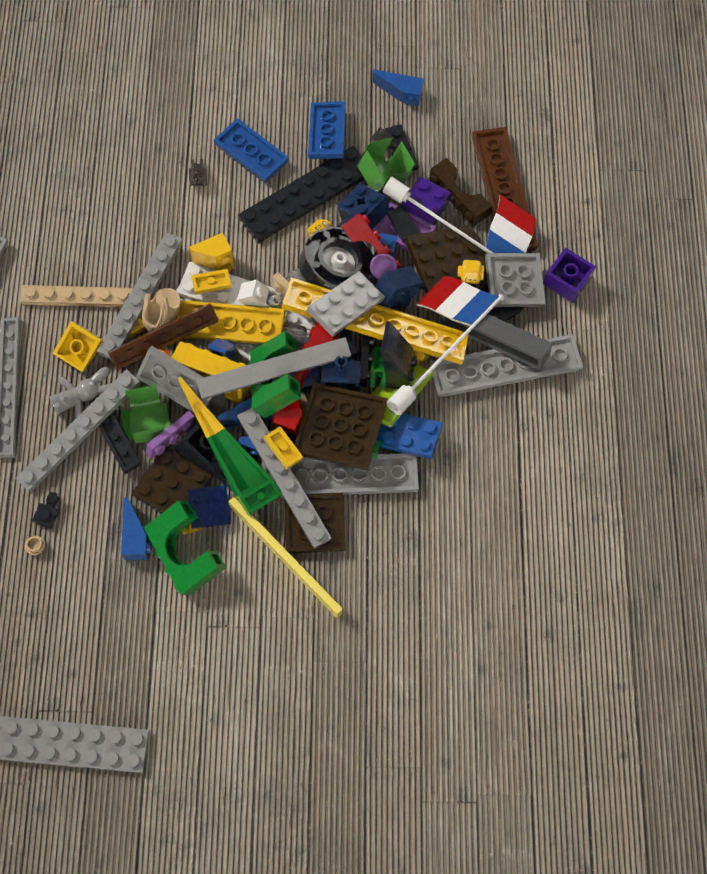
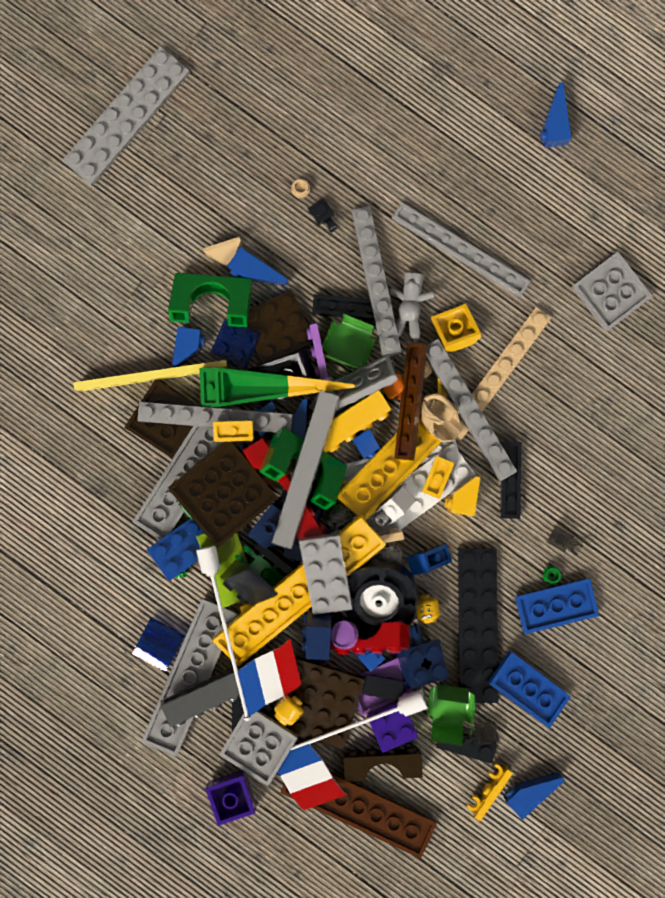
camera: 130 degrees right, 20 degrees up
(134, 569) = (223, 251): none -> tan slope
(186, 230) = (511, 486): none -> black plate
(227, 164) = (556, 575): none -> green plate
(238, 545) = (187, 345): none -> blue slope
(281, 253) = (429, 559): none -> blue slope
(420, 111) = (490, 791): none -> yellow plate
(499, 405) = (158, 644): none -> clear blue slope

